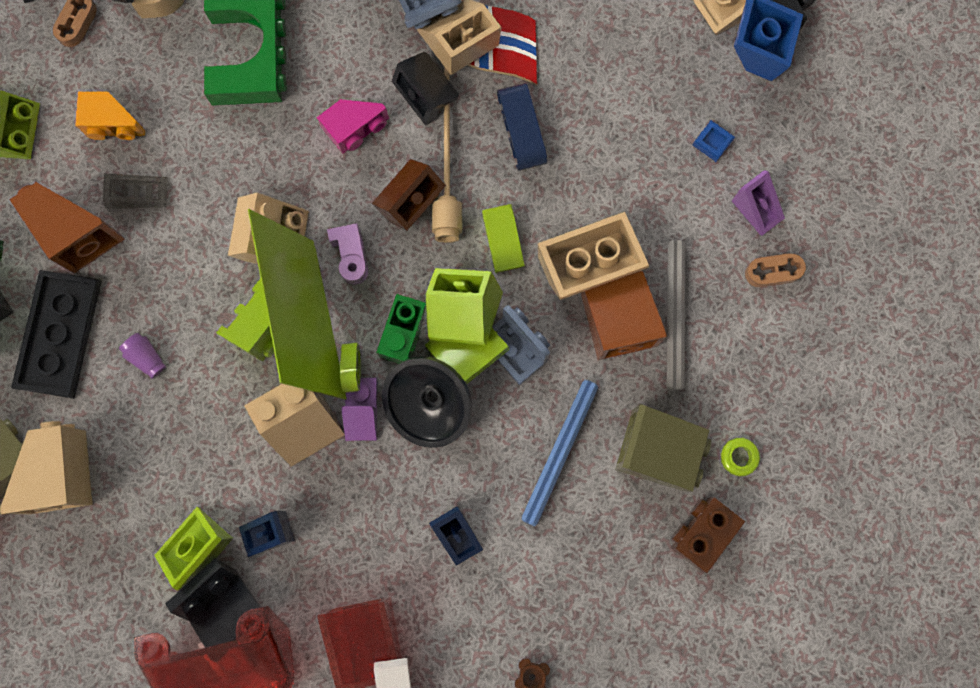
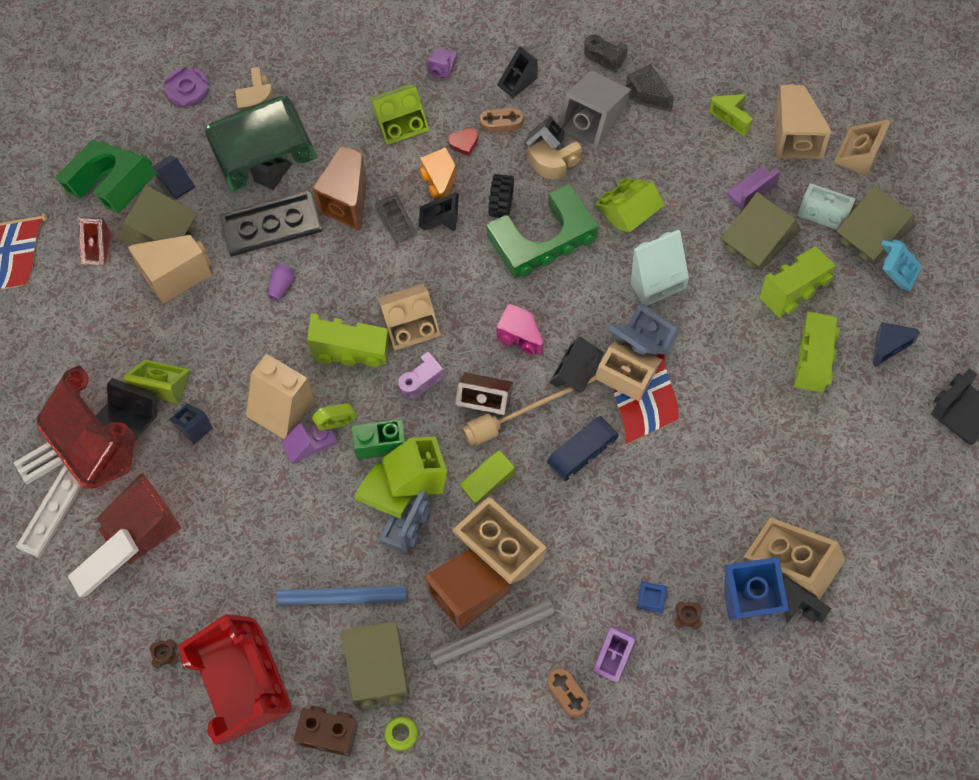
camera: 65 degrees right, 15 degrees down
(77, 72) = (463, 141): none -> tile
(157, 137) = (440, 212): none -> black slope
(176, 61) = (501, 195): none -> black tyre
(296, 308) = (354, 353): lime piece -> none
(416, 412) = (332, 479): black dish -> none
(456, 535) = (245, 547): dark blue slope -> none
(606, 605) = (237, 676): none -> red windscreen
(755, 110) = (693, 609): none -> reddish brown plate

